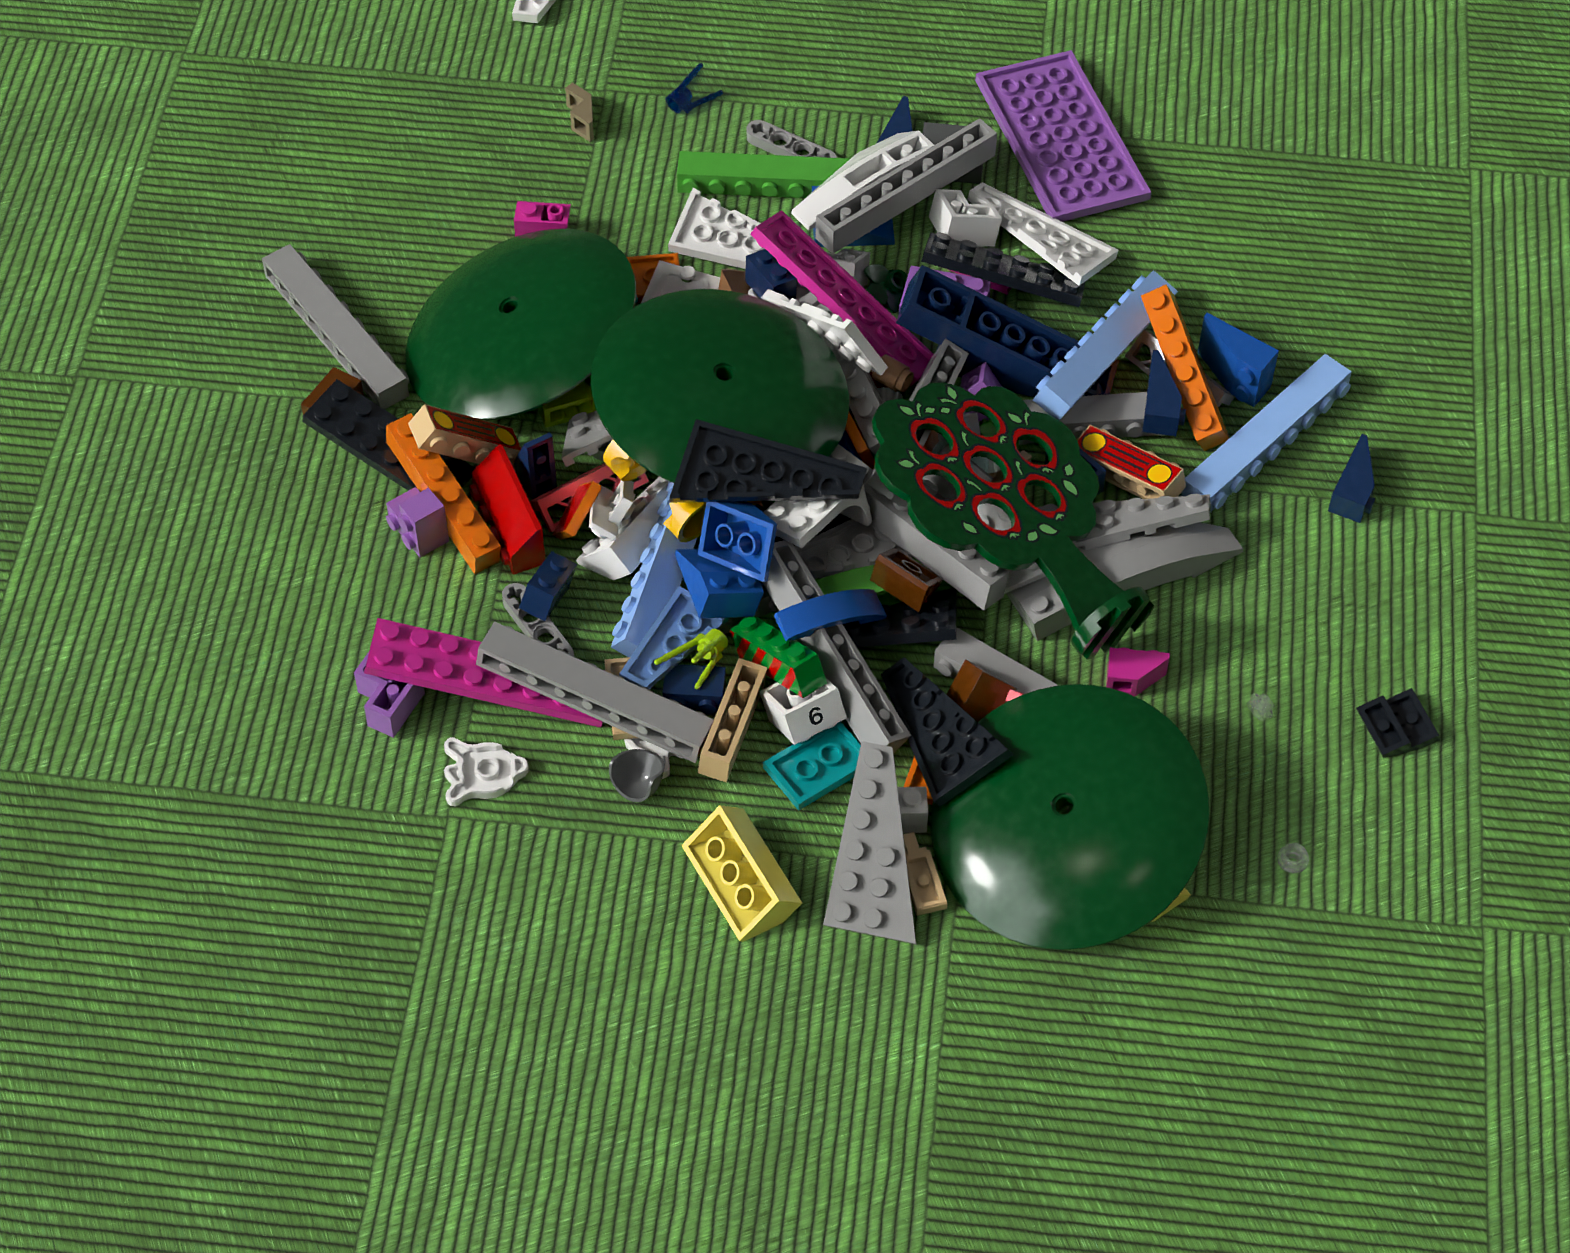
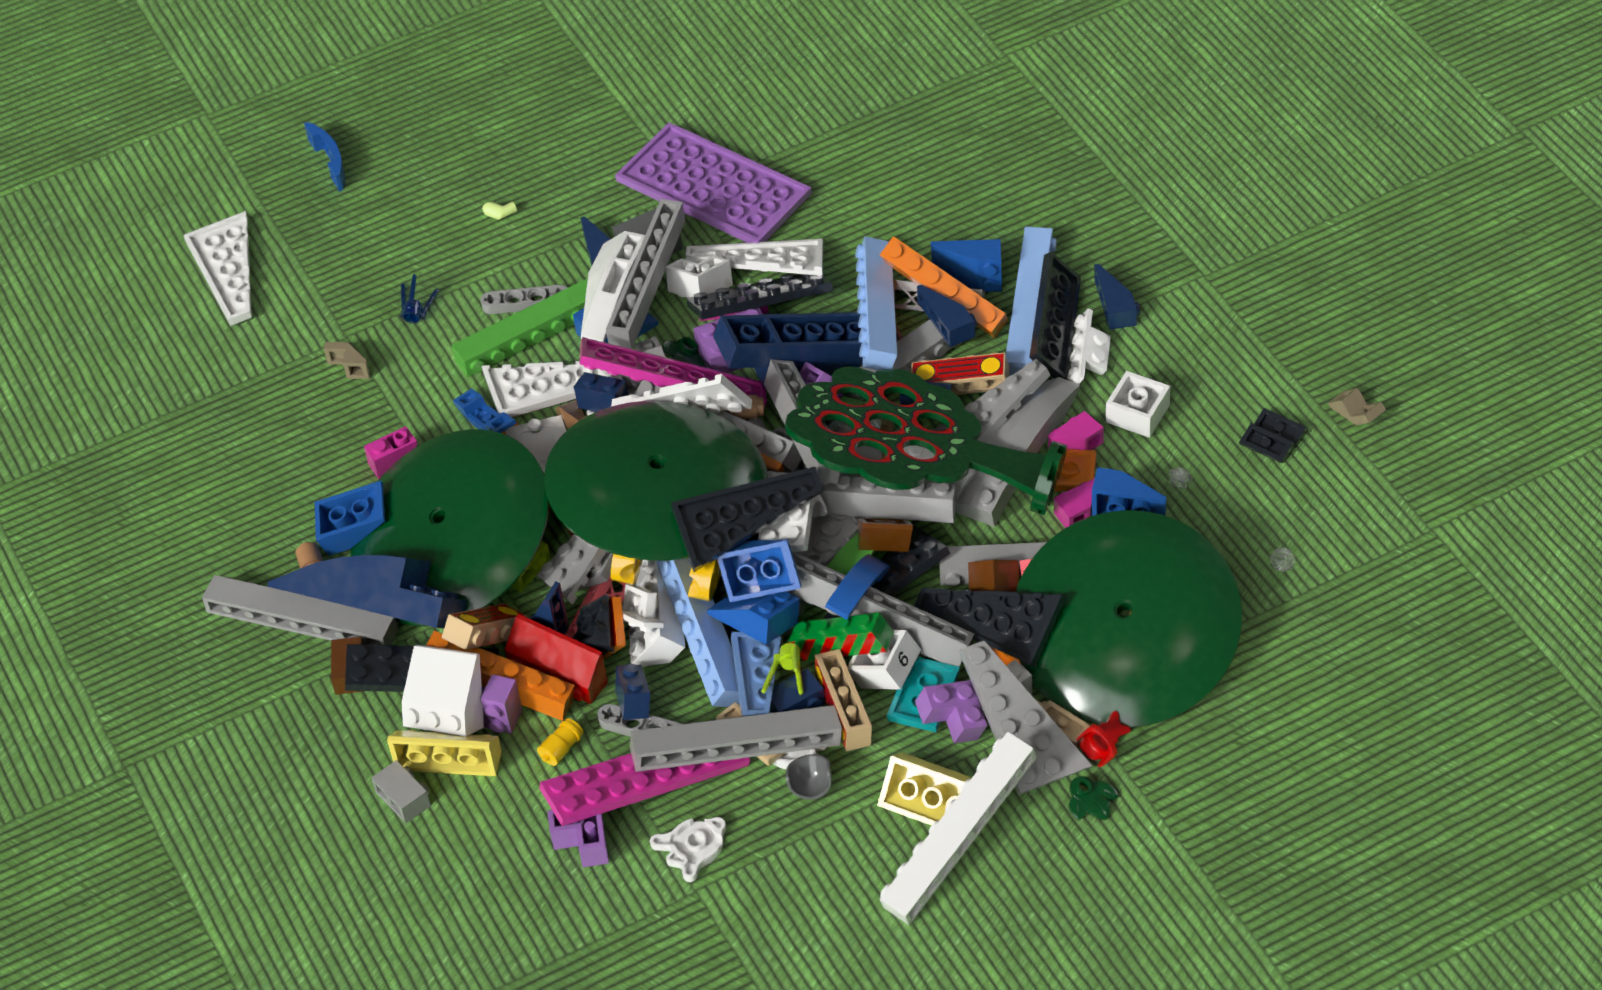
camera: 30 degrees left, 5 degrees down
(274, 549) = (401, 791): none -> light grey brick
(341, 535) = (446, 752): none -> light yellow slope
(374, 478) = (443, 691): none -> white slope
(387, 281) = (308, 554): none -> medium nougat brick
(405, 342) = (377, 585): none -> dark blue slope
(443, 260) = (349, 517): none -> blue slope
(447, 593) = (558, 744): none -> yellow piece
(559, 505) = (595, 625): none -> black slope
(654, 233) = (481, 415): none -> blue slope
(719, 918) = (957, 828): none -> white brick
(828, 792) = (957, 706): none -> medium lavender brick
(840, 48) = (498, 211): none -> yellowish green arm
(886, 979) = (1093, 801): none -> dark green plate
(942, 923) = (1100, 740): none -> red hair
(1164, 630) = (1077, 468): none -> orange tile
(1174, 690) = (1120, 492): none -> blue slope
(1193, 599) = (1079, 433): none -> dark pink slope
(1275, 464) = (1055, 316): none -> black plate
(1281, 604) = (1138, 404): none -> white brick
(1287, 520) = (1089, 349): none -> white bracket
(1511, 747) = (1354, 407): none -> dark tan slope

